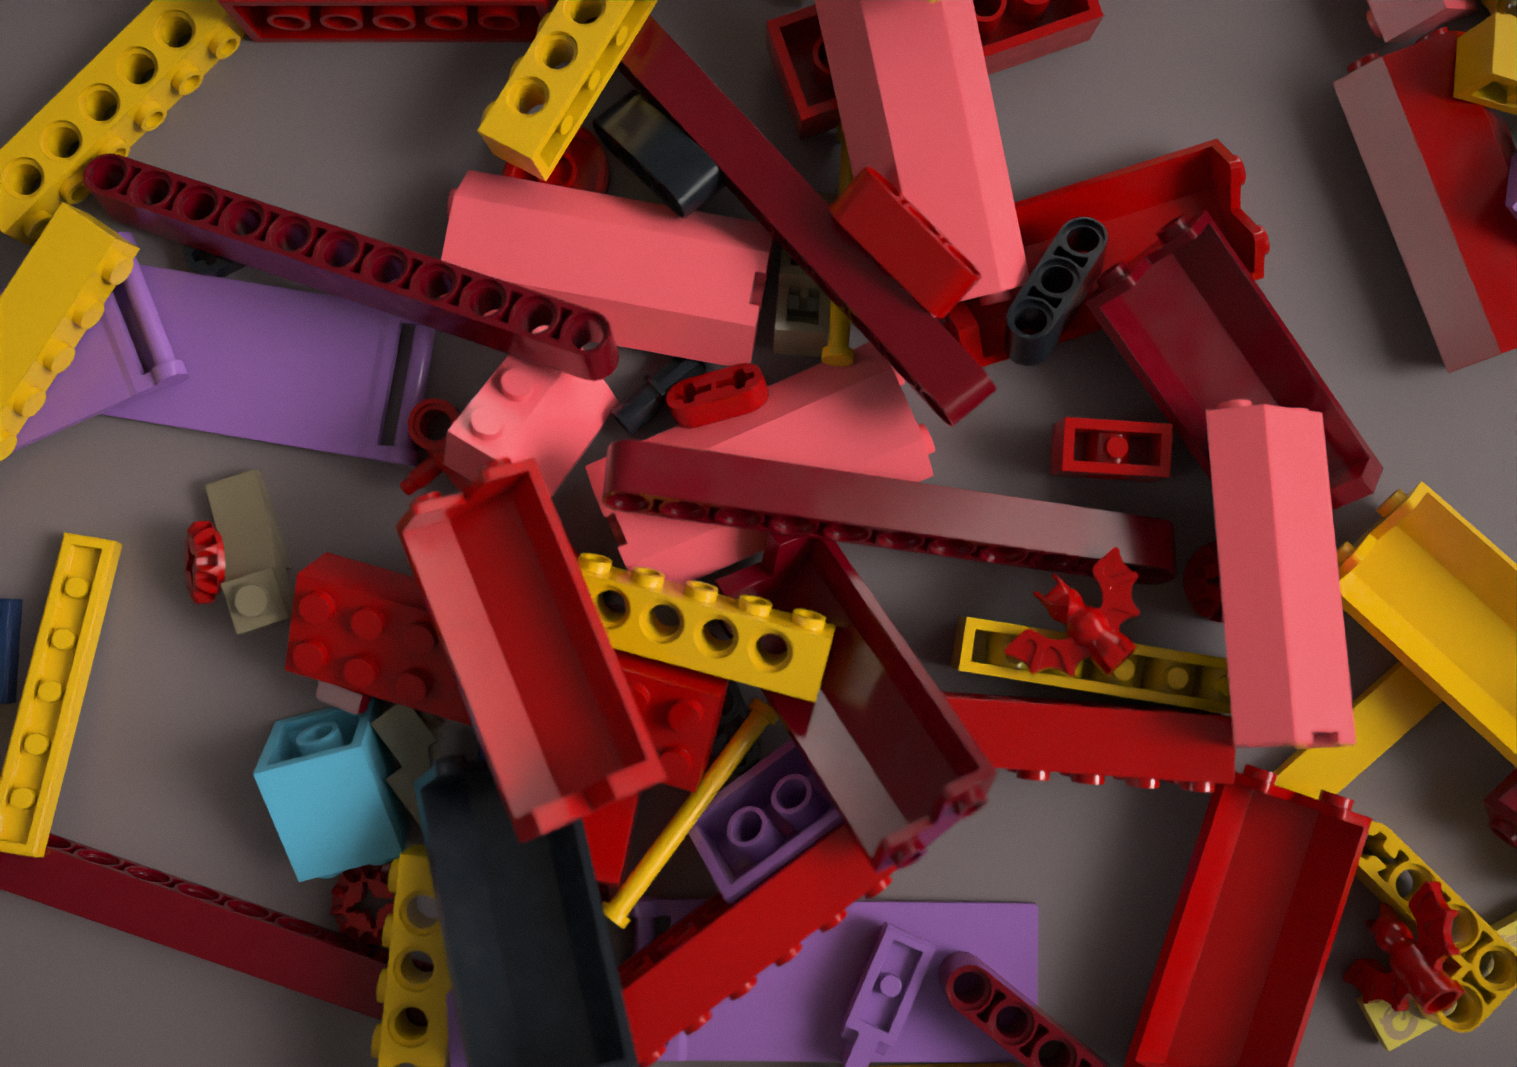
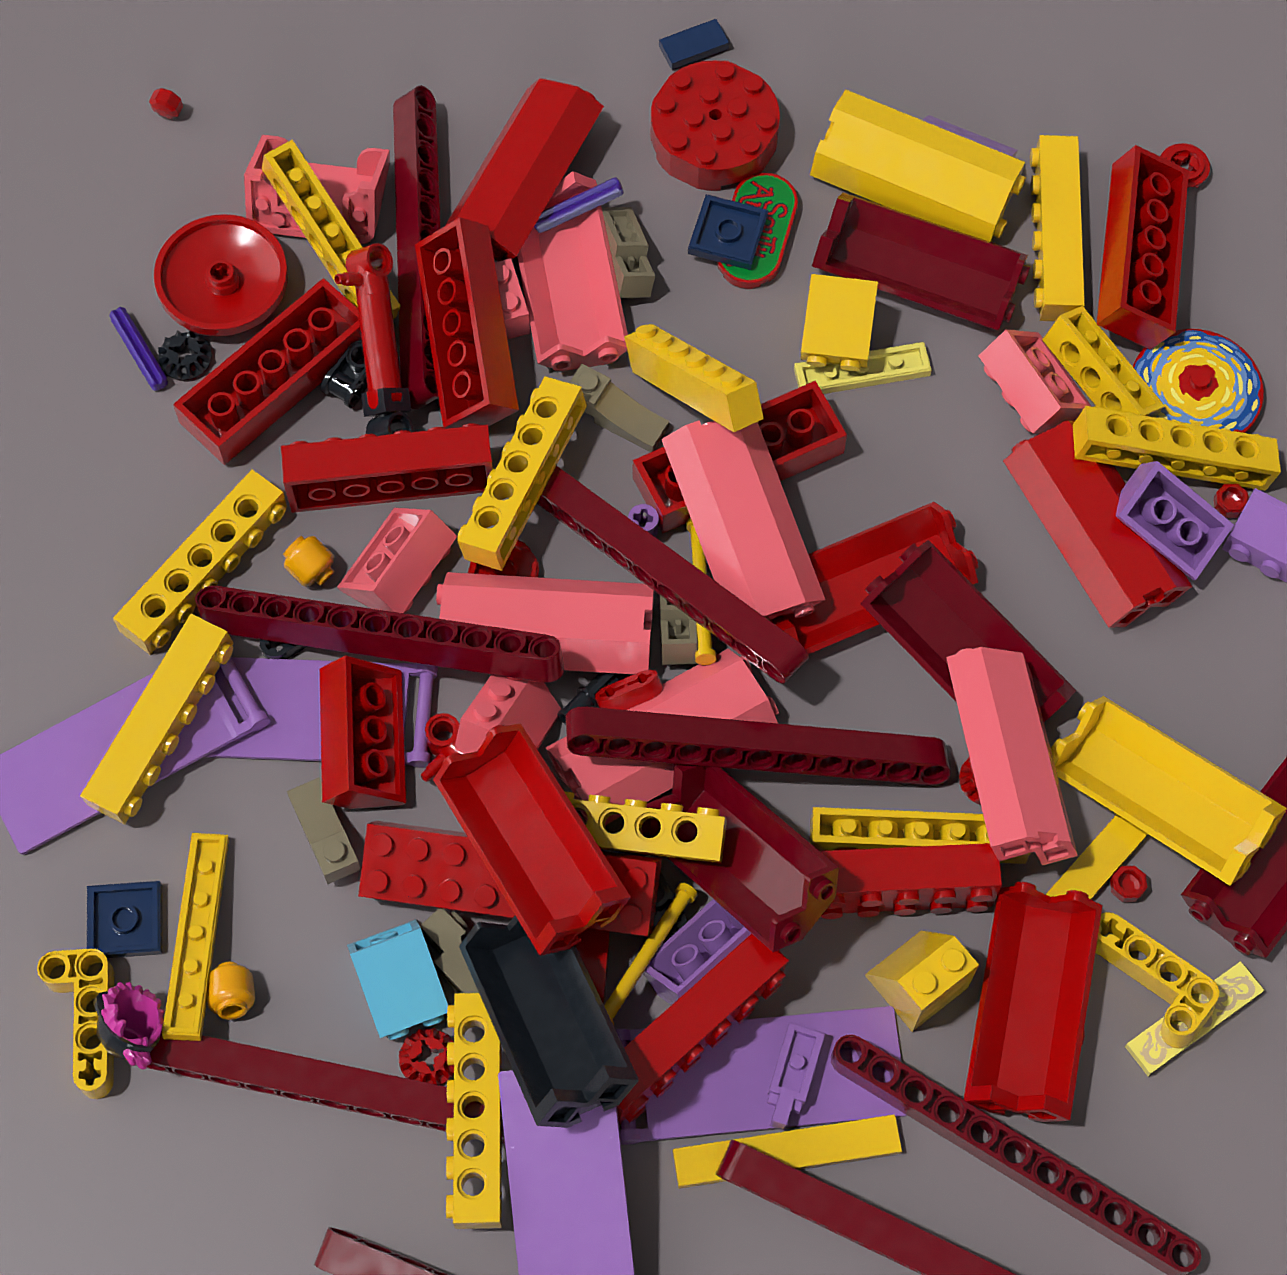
camera: 10 degrees left, 20 degrees down
(97, 778) = (230, 990): none -> light orange head
(204, 562) = (293, 837): red gear -> none
(265, 127) = (309, 561): none -> light orange head
(316, 415) = (361, 734): none -> red slope
(342, 698) = (398, 912): tile -> none
(400, 142) = (398, 560): none -> coral slope
(659, 153) = (572, 548): black beam -> none
(763, 110) = (651, 518): none -> medium lavender bush
(904, 242) = (738, 575): red beam -> none
(1060, 270) = (840, 603): black beam -> none
(1090, 630) = (893, 802): red animal -> none
(1092, 884) = (923, 976): none -> yellow slope
(1111, 449) = (894, 698): red brick -> none
(1406, 768) = (1128, 883): none -> red tile
(1414, 963) = (1145, 994): red animal -> none

